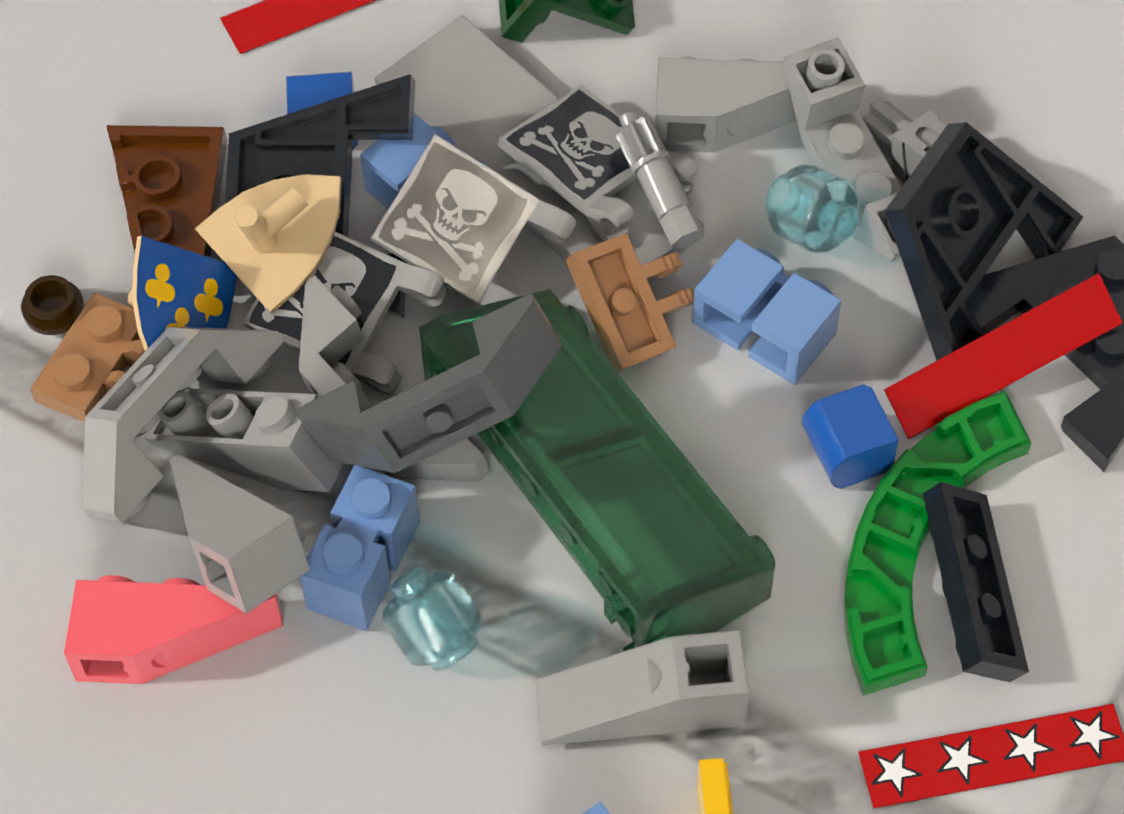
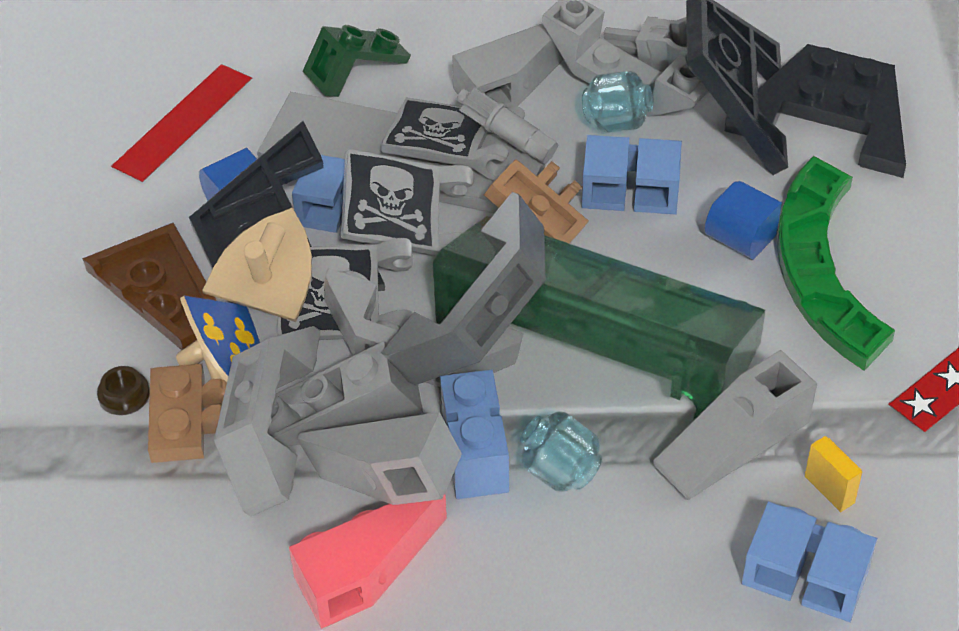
camera: 30 degrees left, 10 degrees down
(975, 583) = (885, 269): black plate -> none
(1003, 356) = (802, 131): red sticker -> none

